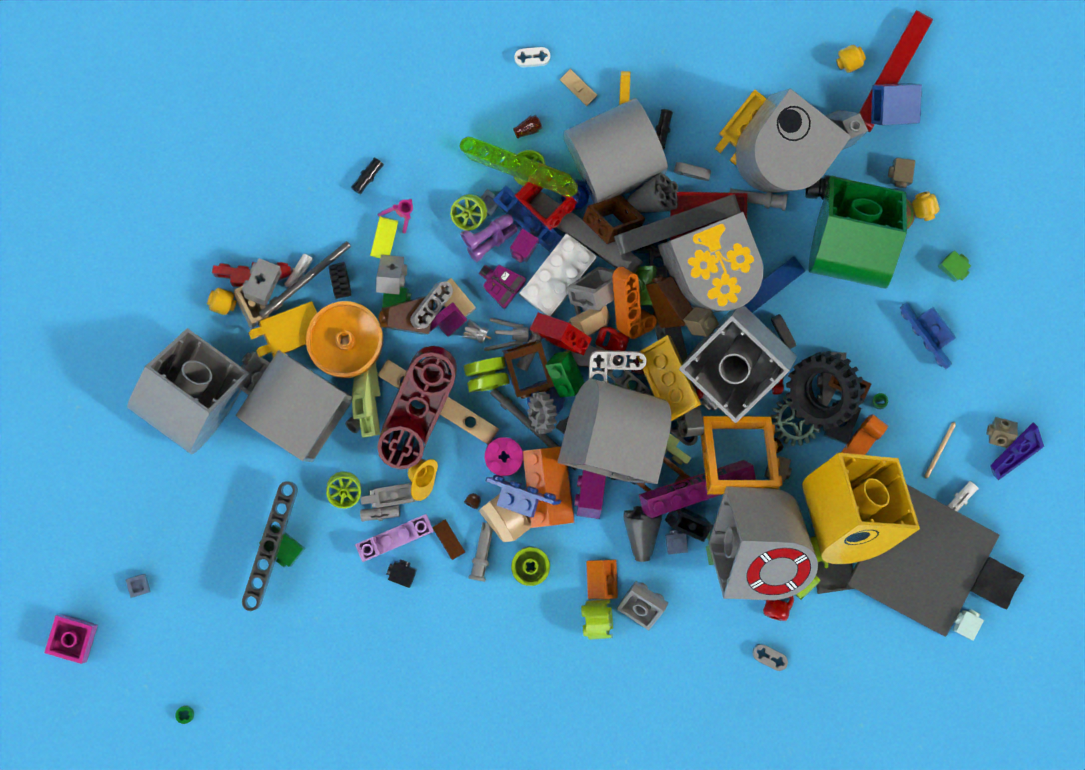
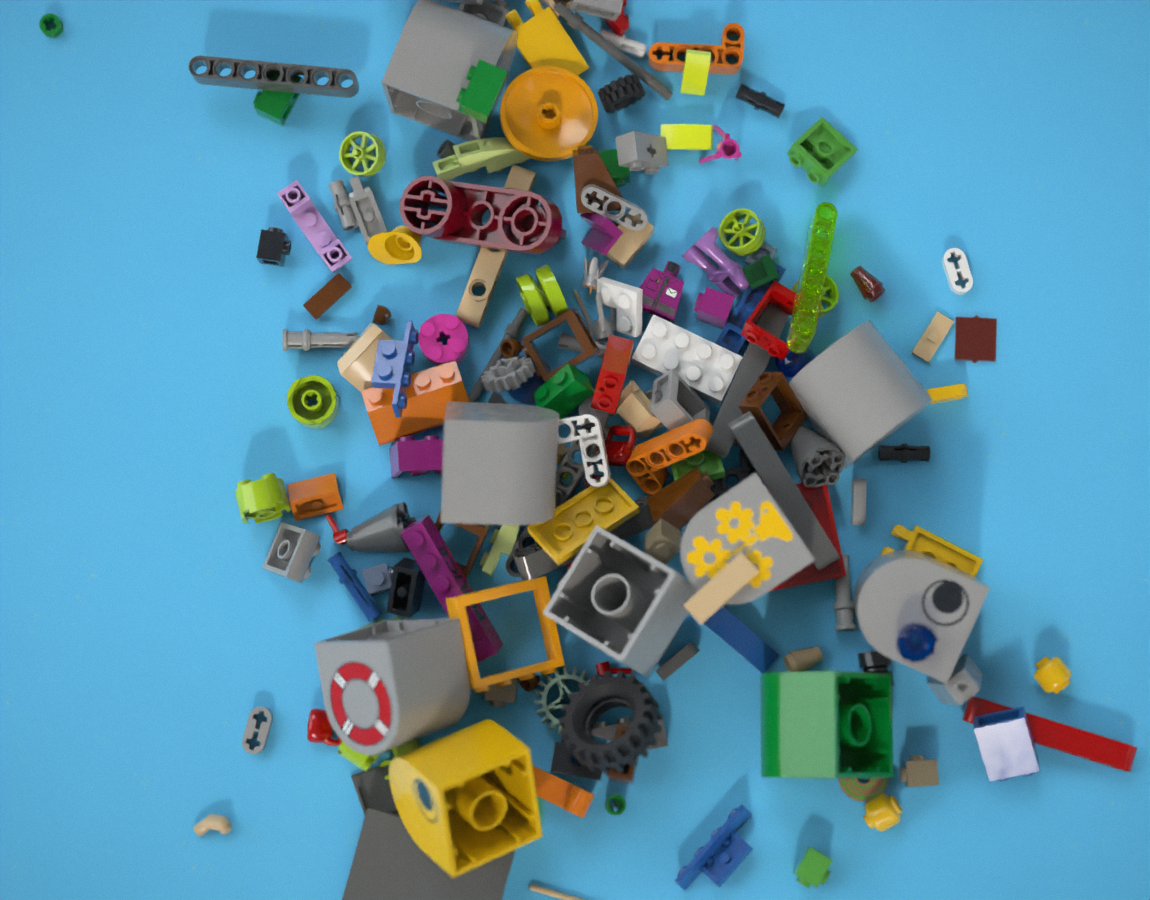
camera: 80 degrees right, 5 degrees down
(319, 217) = (718, 53): none -> orange beam
(328, 384) = (482, 90): none -> green brick
(336, 219) = (695, 72): none -> neon yellow slope
(418, 138) = (821, 152): none -> bright green plate
(504, 311) = (627, 301): none -> white plate
(505, 204) = (761, 272): none -> dark green panel
(521, 407) = (510, 348): none -> reddish brown hinge
(586, 56) = (975, 339): none -> clear red piece
(637, 566) = (338, 536): none -> red hand
(656, 571) = (338, 562): none -> blue pin
(749, 285) = (721, 588): none -> tan tile
(801, 240) = (802, 659): none -> tan cone
(818, 151) = (916, 642): none -> clear blue hair
(832, 702) = (213, 822): none -> tan arm

